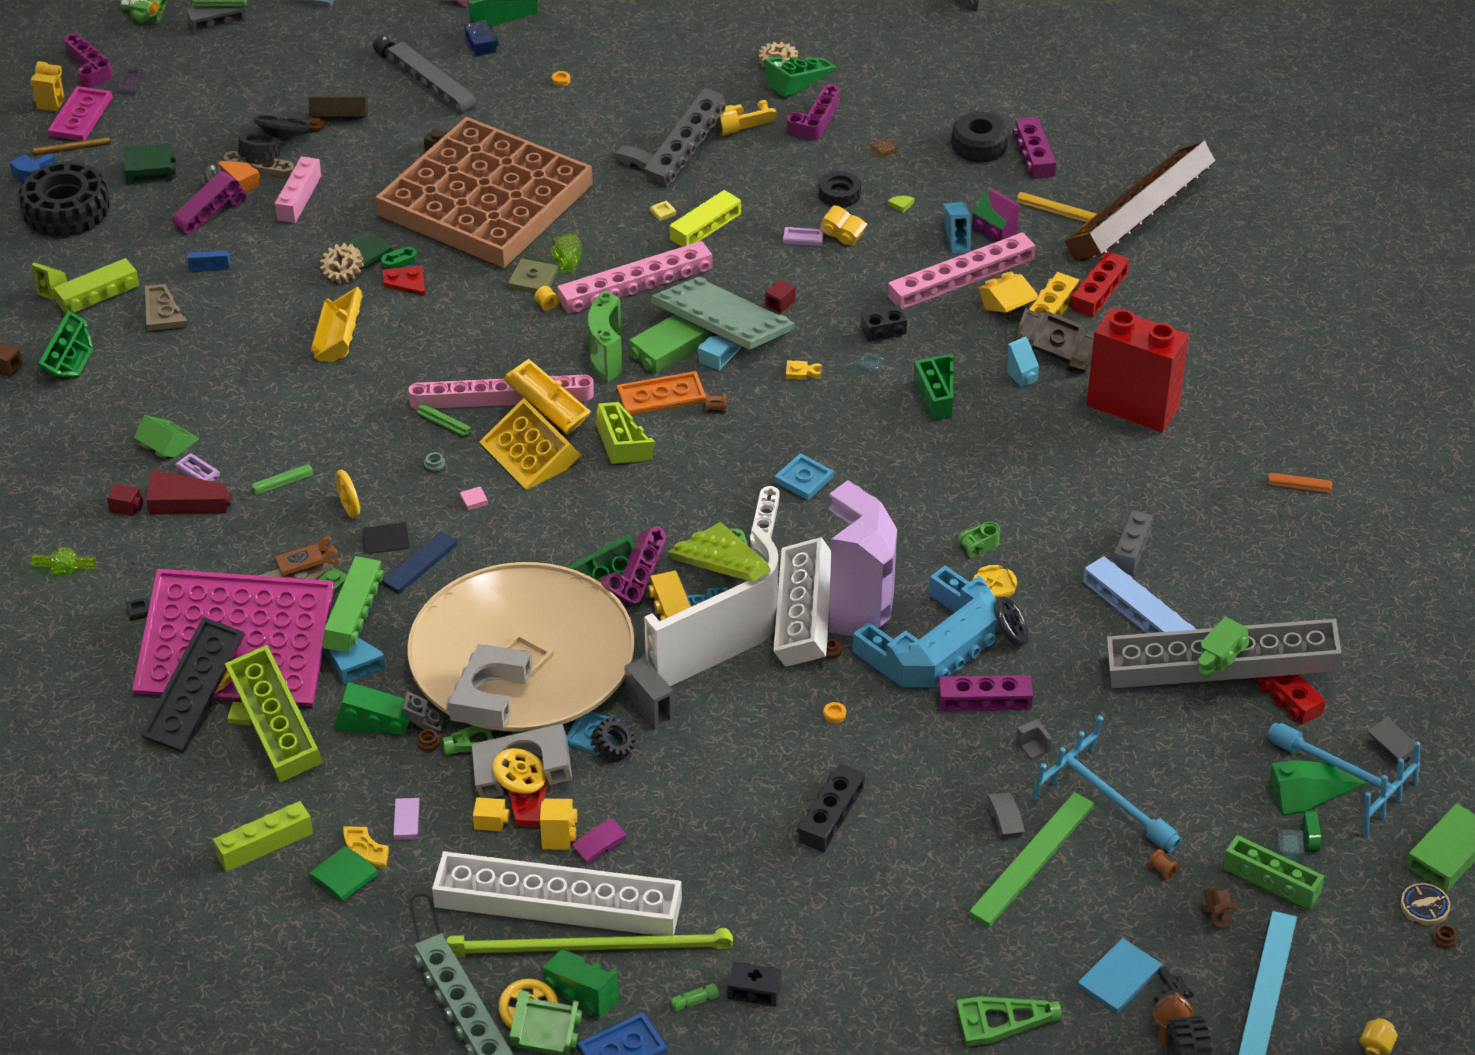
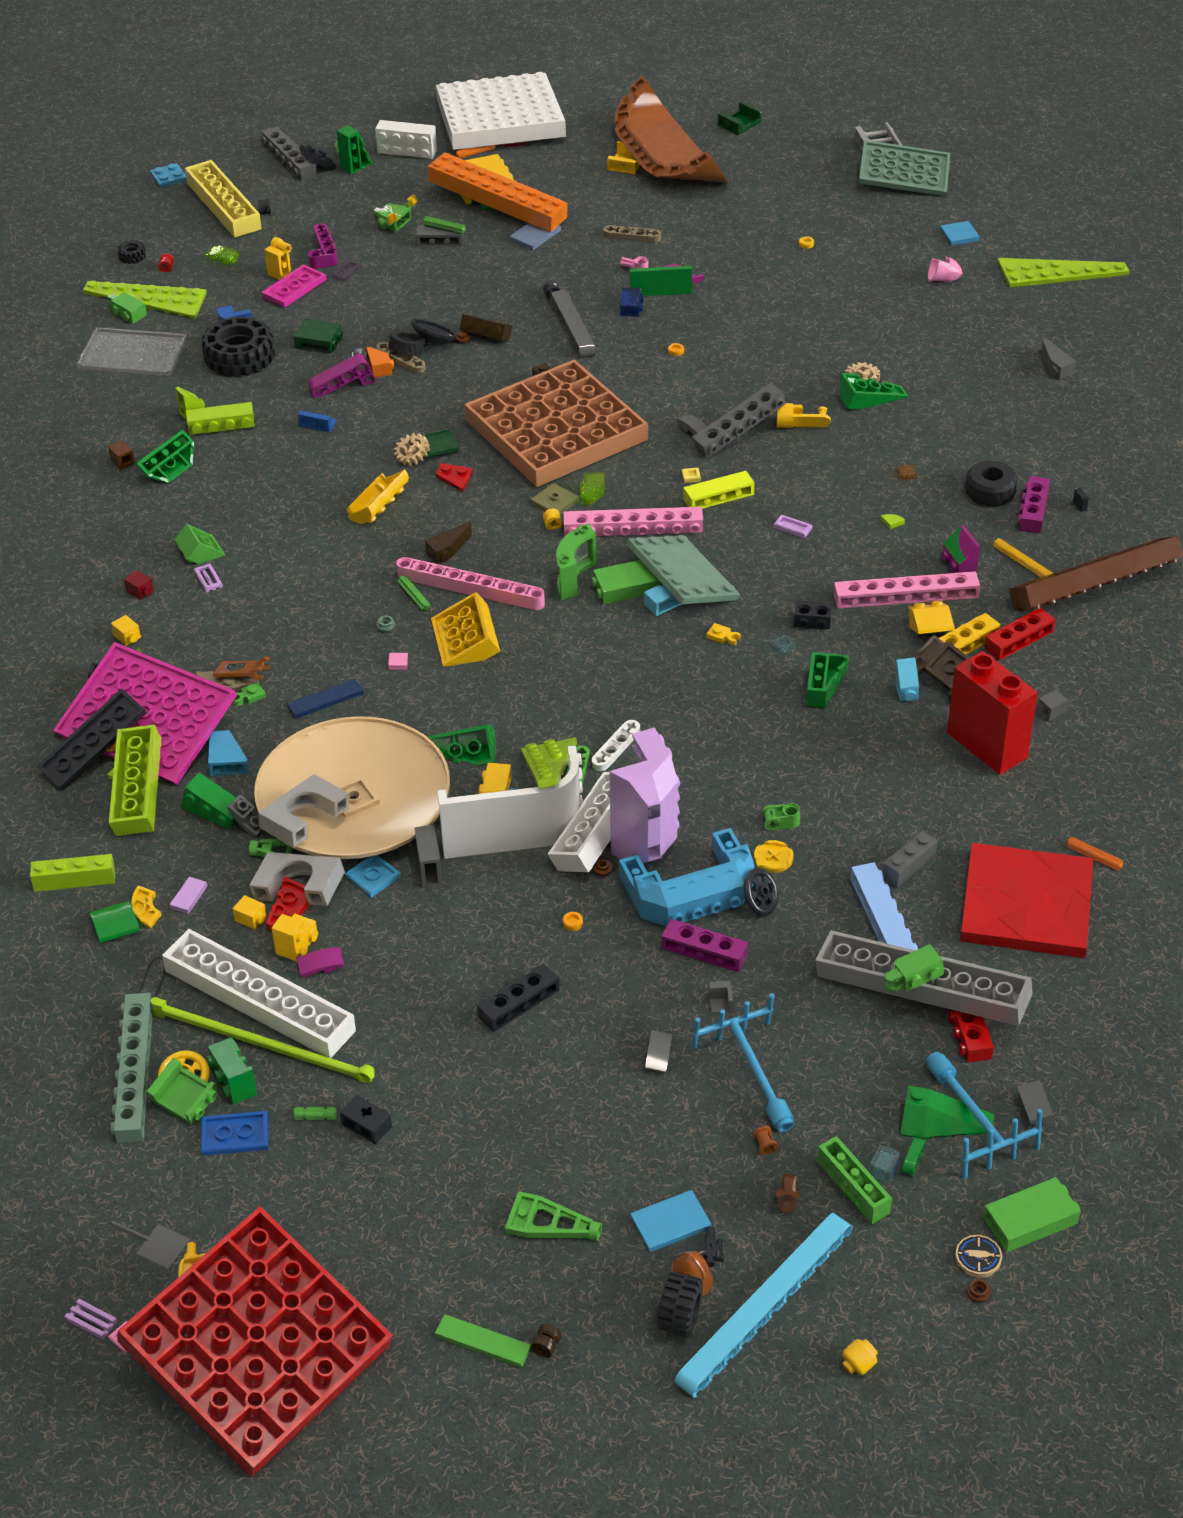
camera: 25 degrees right, 0 degrees up
(63, 561) = (67, 618): clear neon green axle -> none
(71, 146) = (273, 308): pearl gold bar -> none
(143, 554) = (125, 630): none -> yellow brick
(161, 309) = (258, 448): dark tan wing -> none
(185, 495) = (184, 594): dark red slope -> none
(282, 479) = (266, 603): bright green axle -> none
(298, 189) = (415, 384): bright pink brick -> none
(347, 494) = (299, 628): yellow plate -> none
(353, 604) = (246, 714): bright green brick -> none
(386, 537) = (311, 671): black panel -> none
(399, 258) = (460, 457): green beam -> none
(428, 734) = (242, 838): reddish brown plate -> none
(446, 358) = (446, 544): none -> dark brown slope
(519, 771) = (285, 889): yellow plate -> none
(547, 396) = (497, 596): yellow container -> none
(605, 747) = (371, 892): black tyre -> none
(621, 436) = (540, 645): lime wedge -> none
(648, 543) = (482, 750): magenta beam -> none
(661, 393) = (597, 620): orange tile -> none
(715, 403) = (634, 640): dark orange bush -> none
(780, 296) = (740, 569): dark red brick -> none
(804, 476) = (669, 720): dark azure plate -> none
(814, 124) = (857, 437): magenta beam -> none
(843, 179) = (846, 504): black tyre -> none
(843, 226) = (828, 526): yellow brick -> none
(957, 226) = (924, 552): dark azure slope -> none
(1031, 860) = (658, 1097): bright green tile -> none
(1076, 130) = (1080, 499): none -> black tile
(1266, 548) = (1027, 900): none -> red tile

